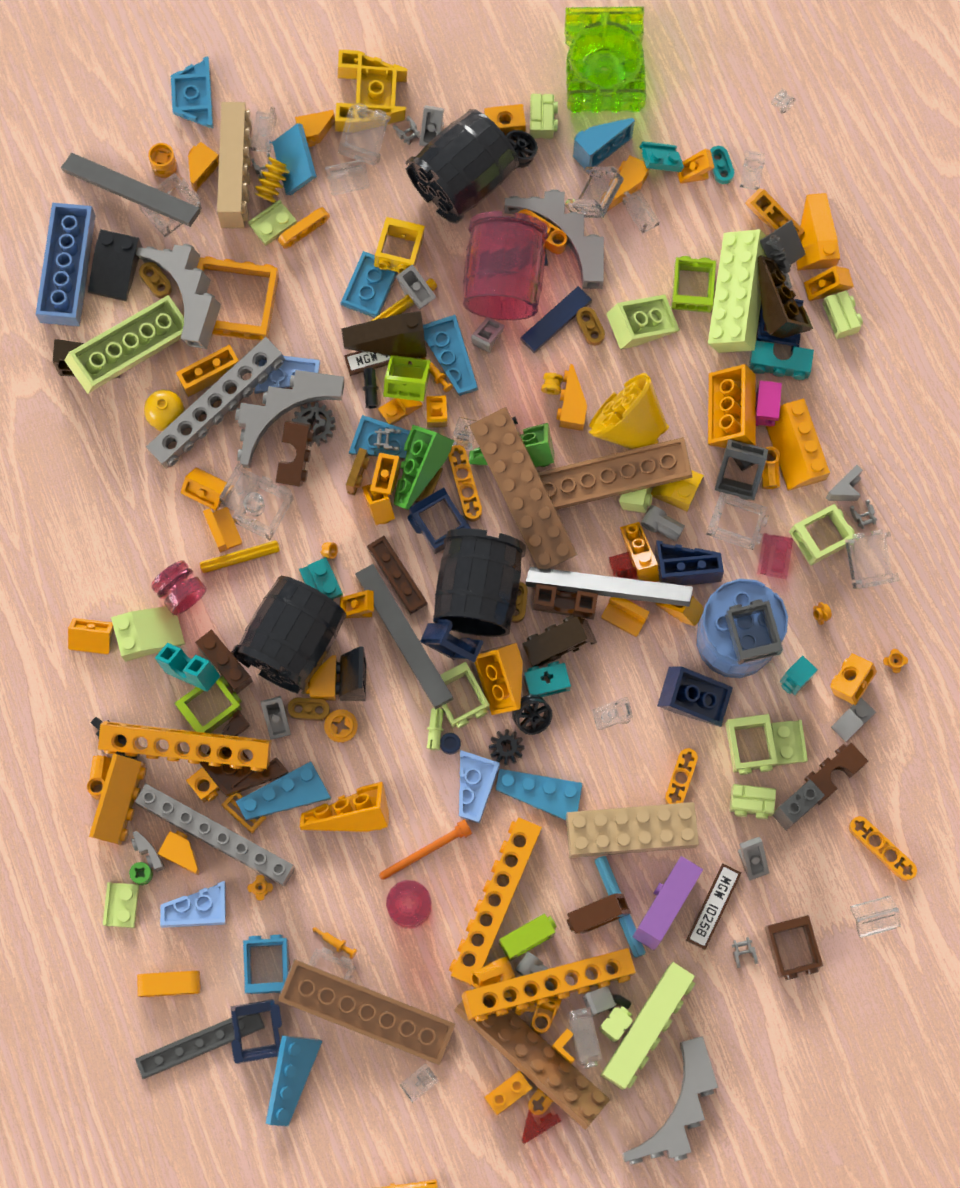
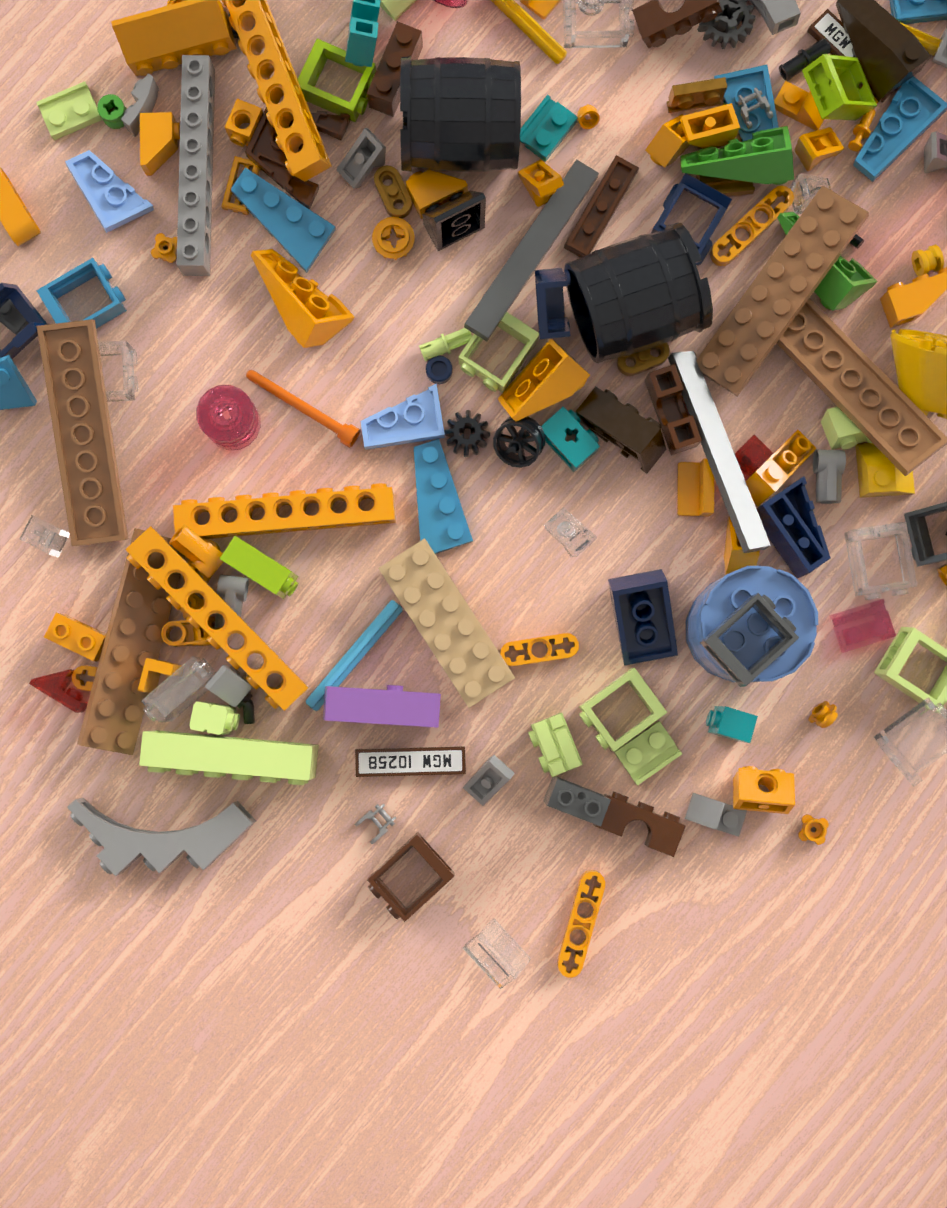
camera: 60 degrees right, 10 degrees up
(340, 945) = (148, 365): light orange piece -> none
(598, 913) = (327, 634): reddish brown window -> none

